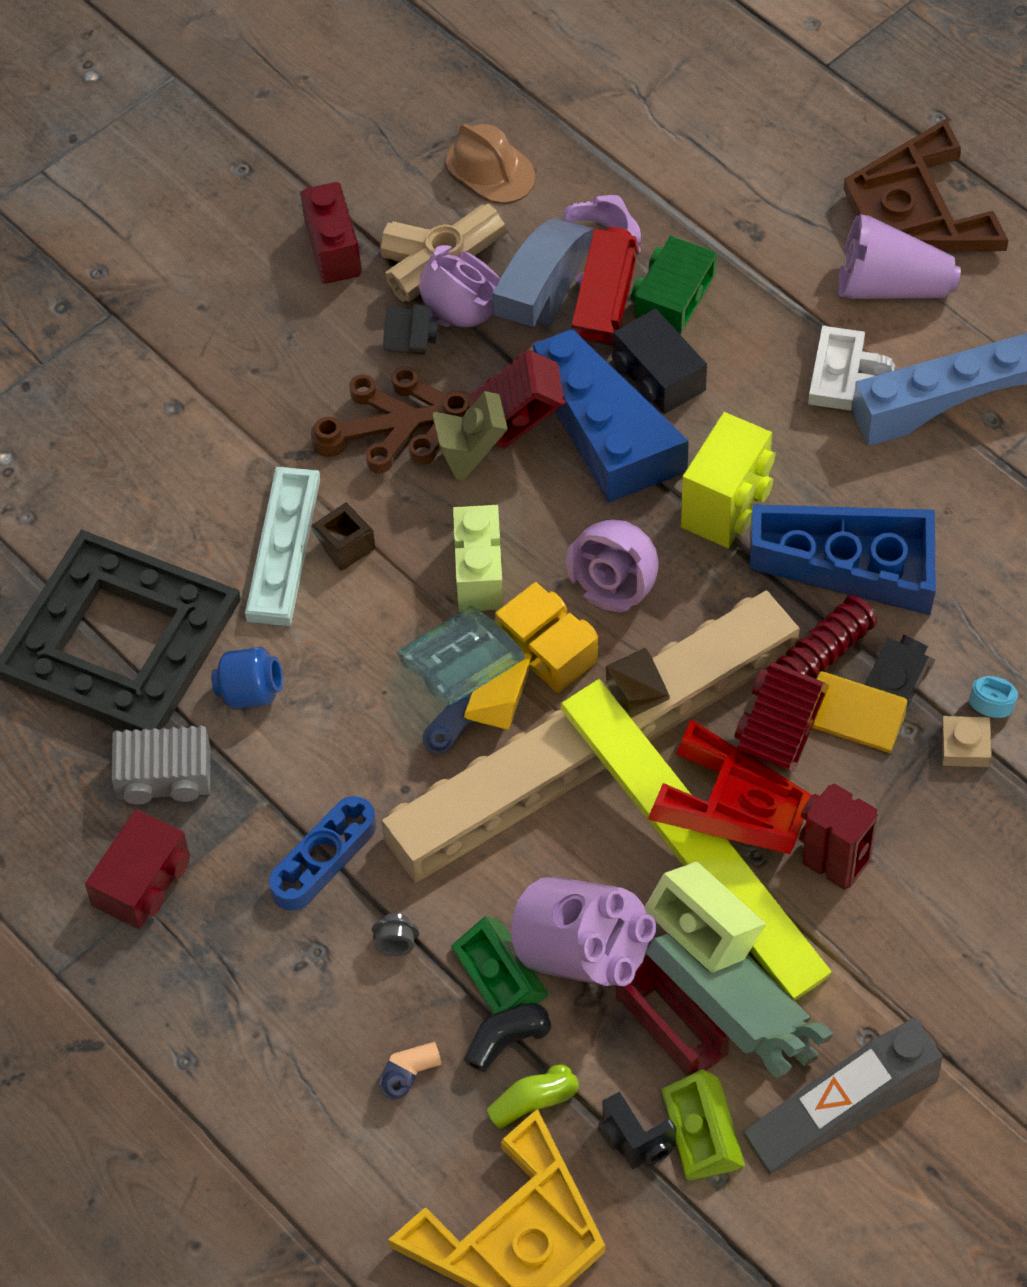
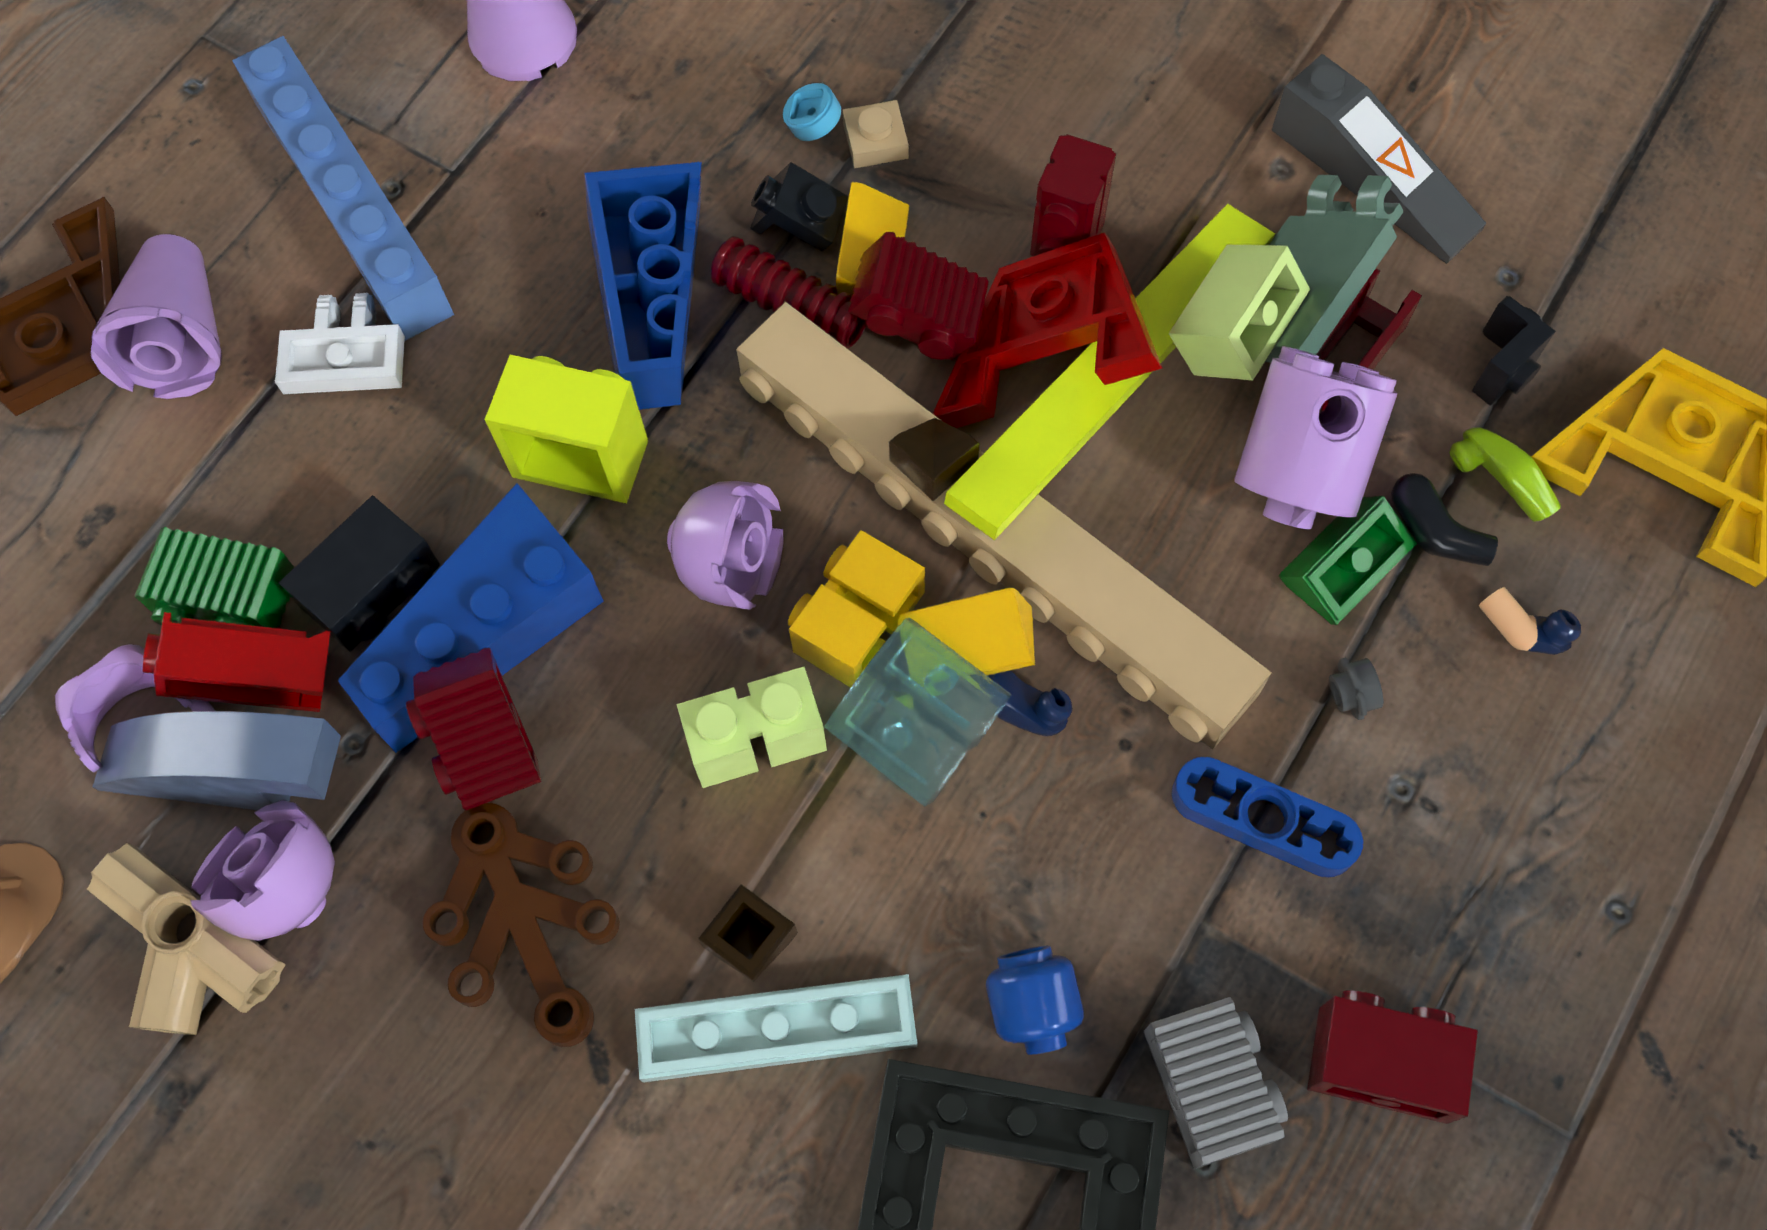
camera: 105 degrees left, 10 degrees up
(331, 232) = (157, 1126): dark red brick -> none
(409, 329) = (349, 934): black bracket -> none
(470, 437) = (548, 773): olive slope -> none
(703, 1126) = (1463, 298): lime slope -> none

